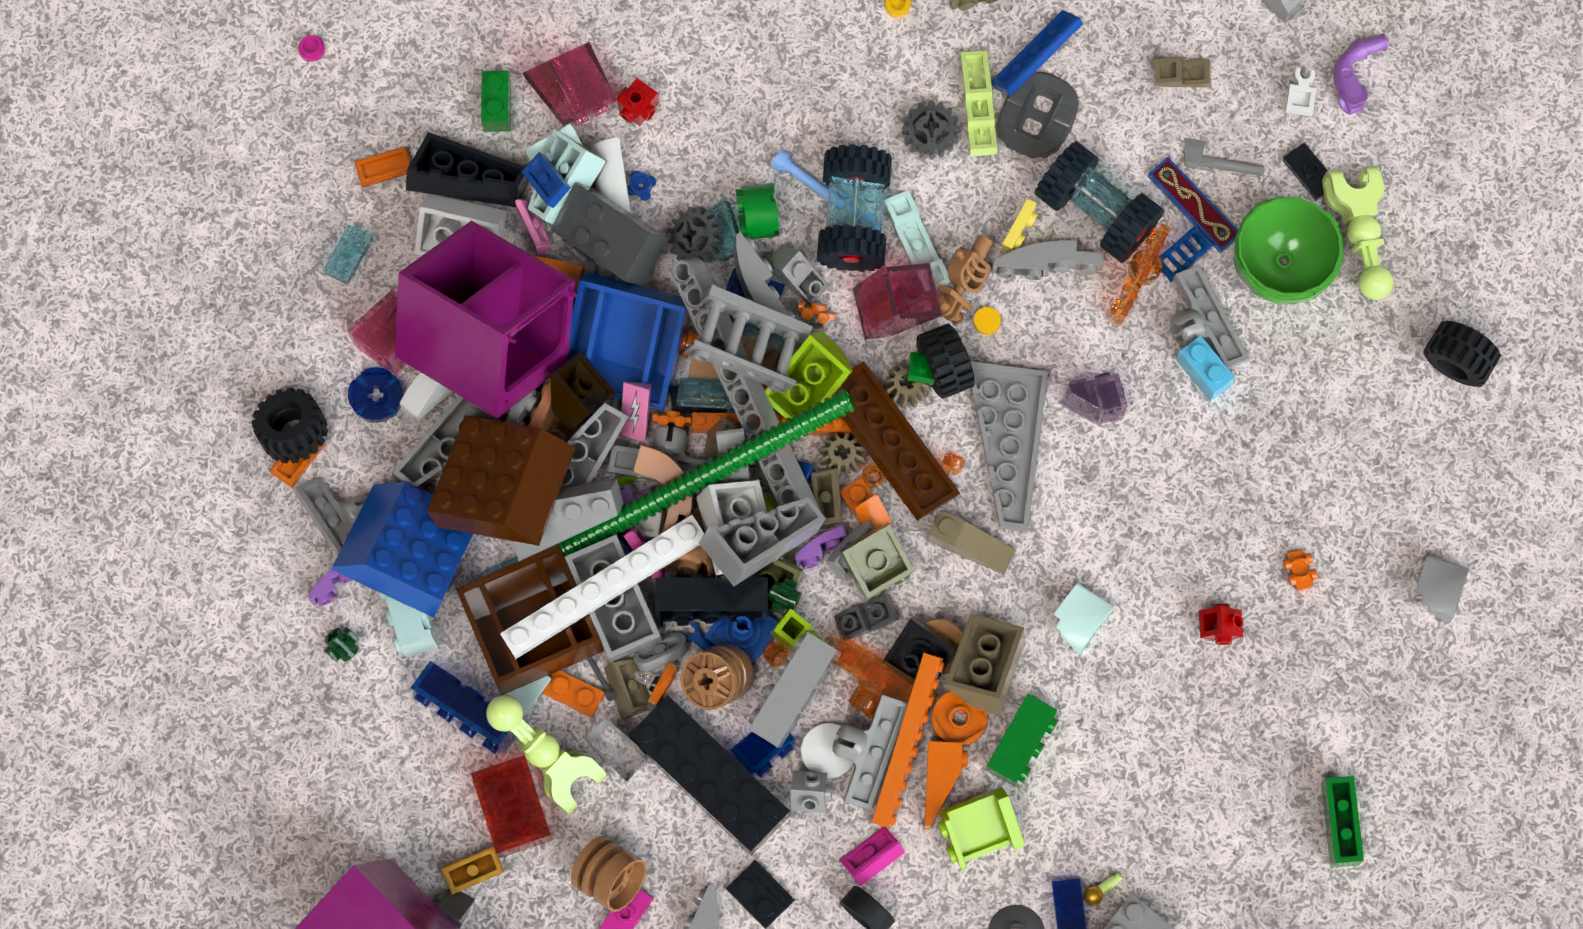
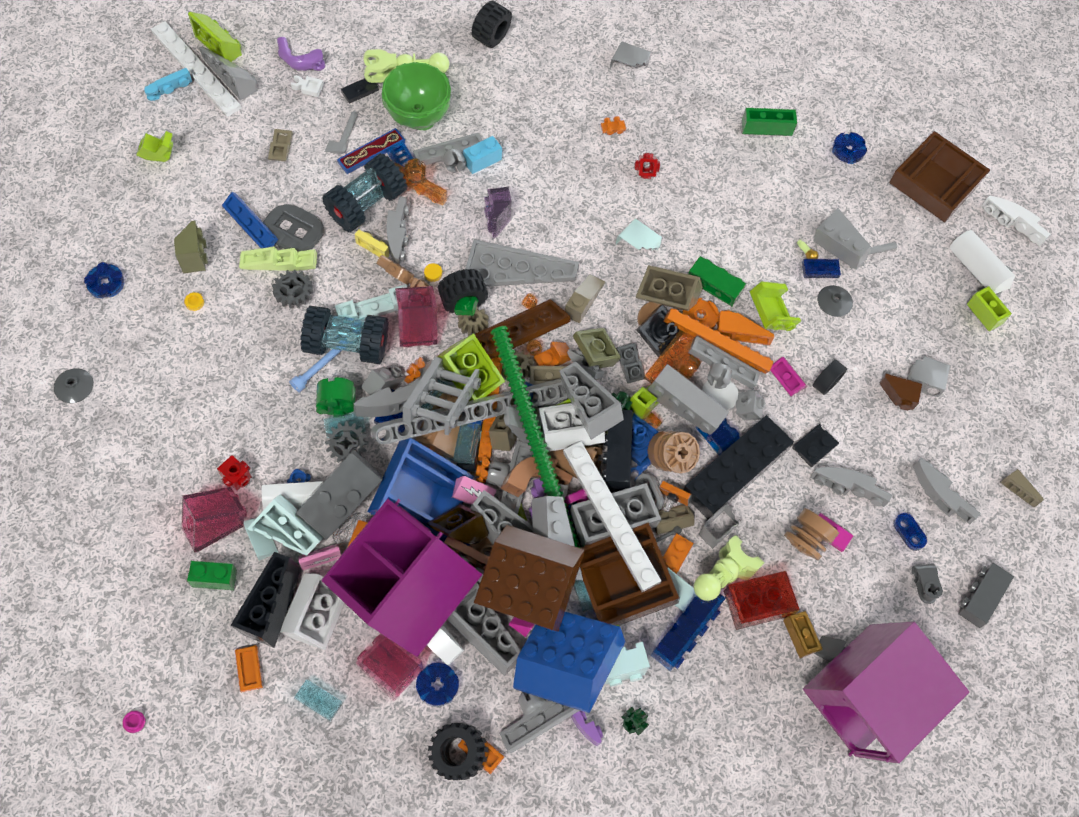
camera: 95 degrees left, 10 degrees down
(546, 180) = (290, 533): blue plate -> none

